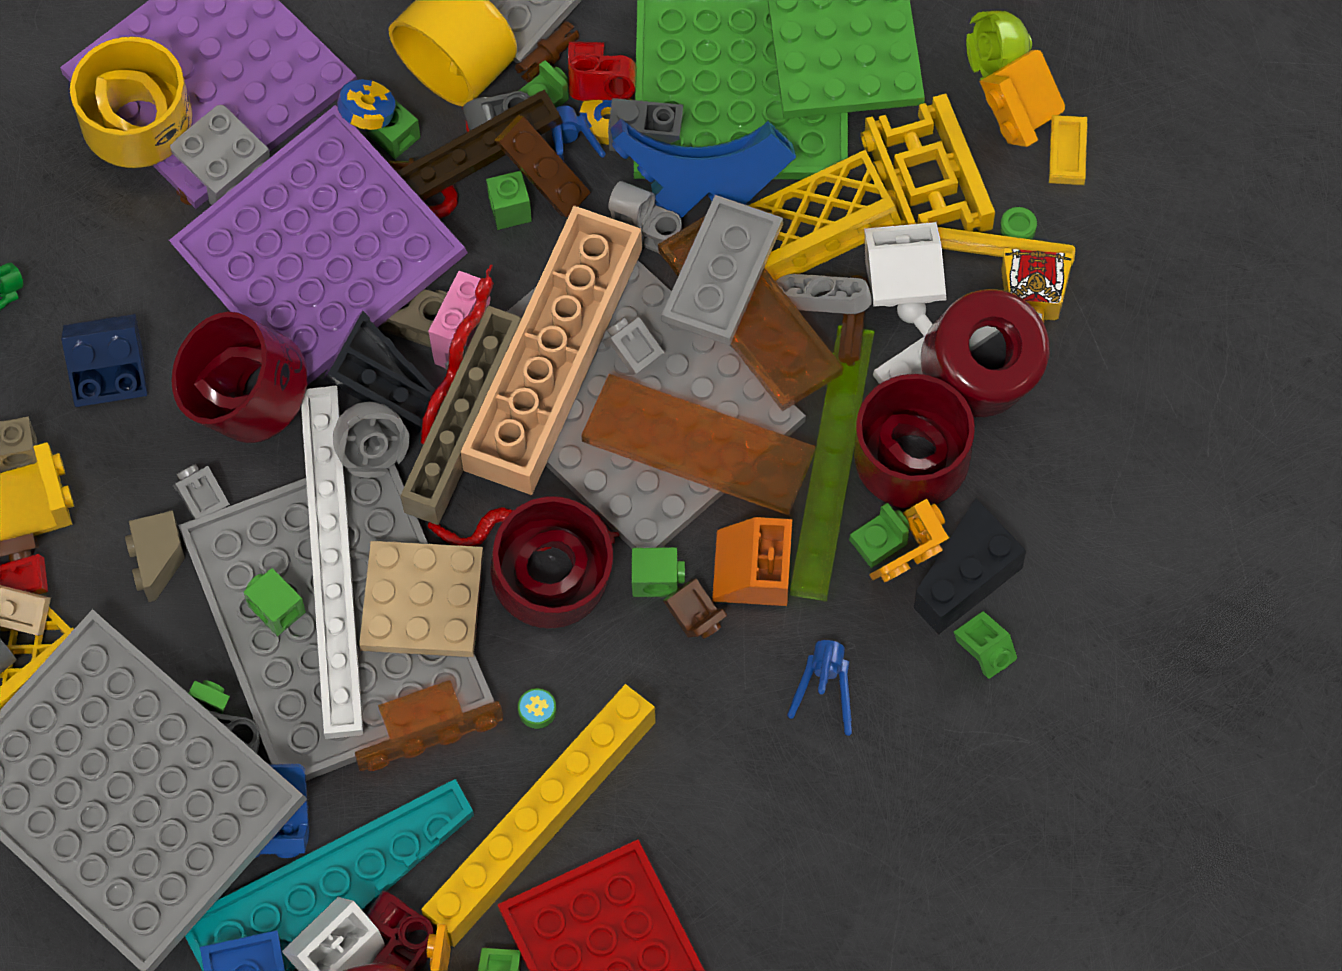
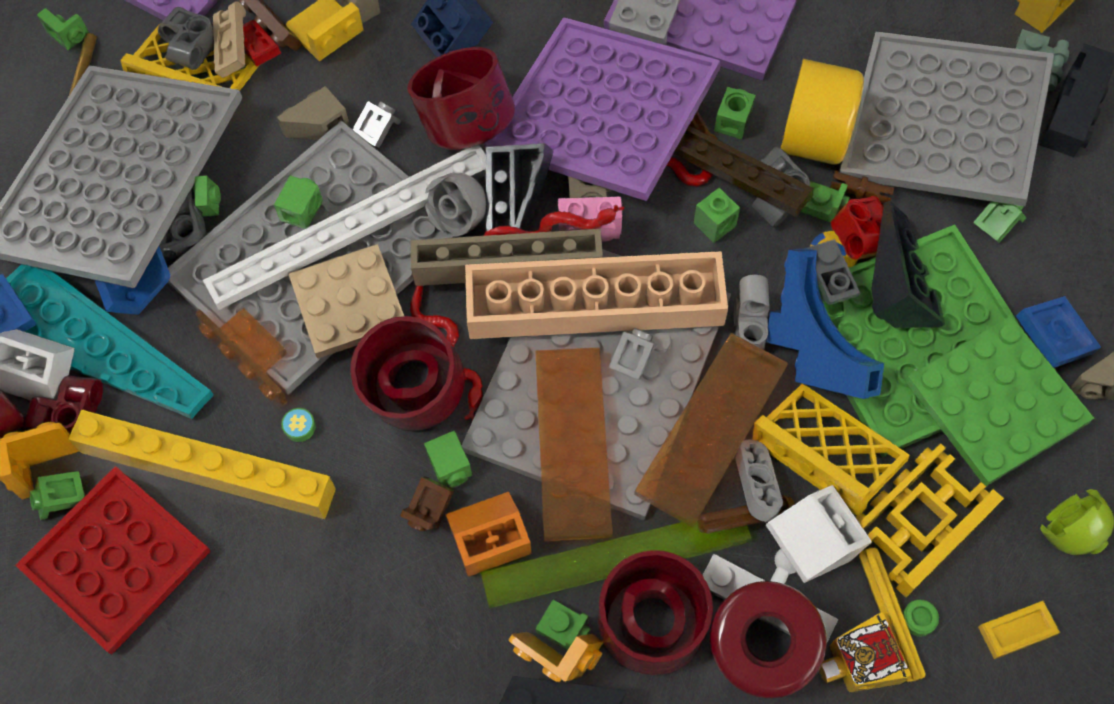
camera: 65 degrees right, 0 degrees up
(366, 104) = (740, 72): piece -> none
(542, 166) = (752, 220): reddish brown plate -> none
(569, 129) = (802, 227): blue plant -> none
(688, 71) = (898, 277): none -> black wedge
(722, 270) = (729, 388): light grey plate -> none
(827, 663) = (427, 630): blue plant -> none
(1023, 97) = (1041, 566): light orange bracket -> none

